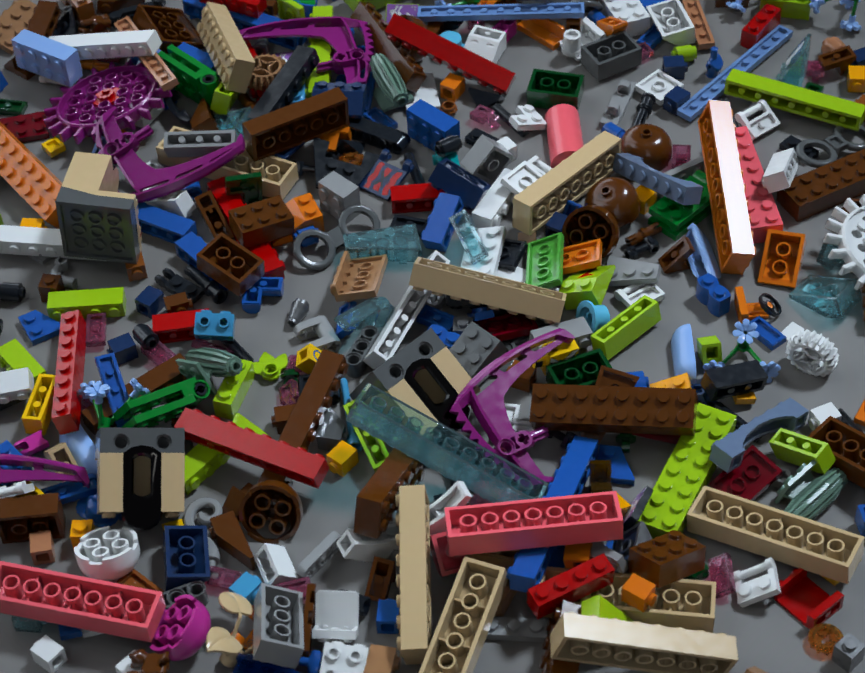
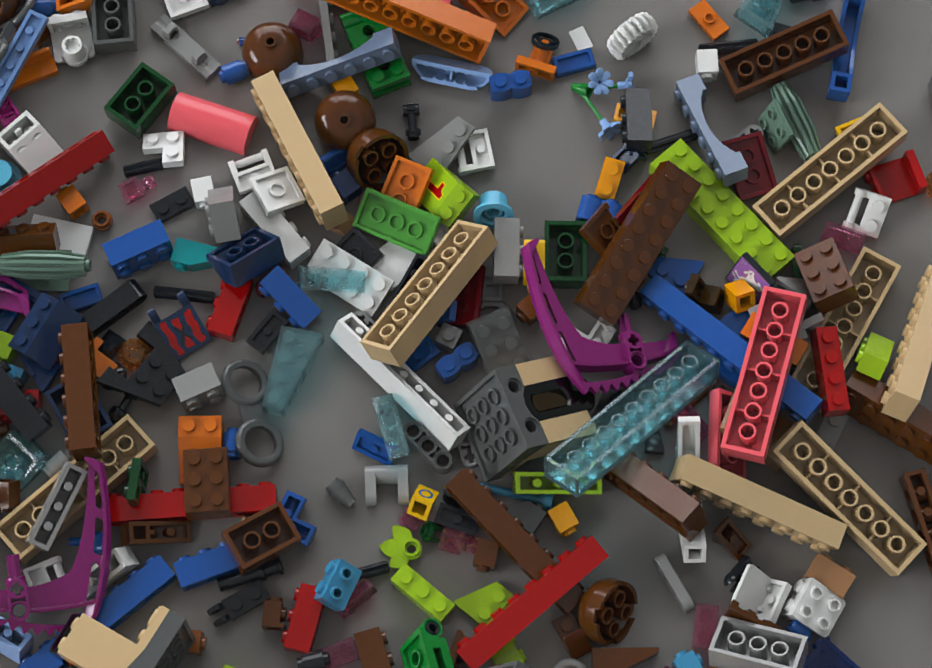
camera: 70 degrees left, 25 degrees up
(150, 301) = (252, 641): dark blue brick -> none
(209, 362) = (394, 608): sand green plate -> none
(274, 564) = (669, 630): white brick -> none
(358, 277) = (331, 411): medium nougat bracket -> none
(387, 617) = (771, 545): blue brick -> none
(448, 145) = (184, 245): black brick -> none
(485, 98) = (105, 175): black slope -> none
(626, 326) = (519, 184): lime brick -> none
(639, 592) = (858, 316): orange brick -> none
(642, 233) = (394, 111): reddish brown pin -> none
(644, 108) = (211, 26): black pin -> none
(676, 257) = (443, 93): reddish brown slope -> none
(683, 352) = (571, 147): light blue brick -> none
(709, 349) = (580, 122): lime brick -> none
(802, 449) = (746, 103): lime brick -> none

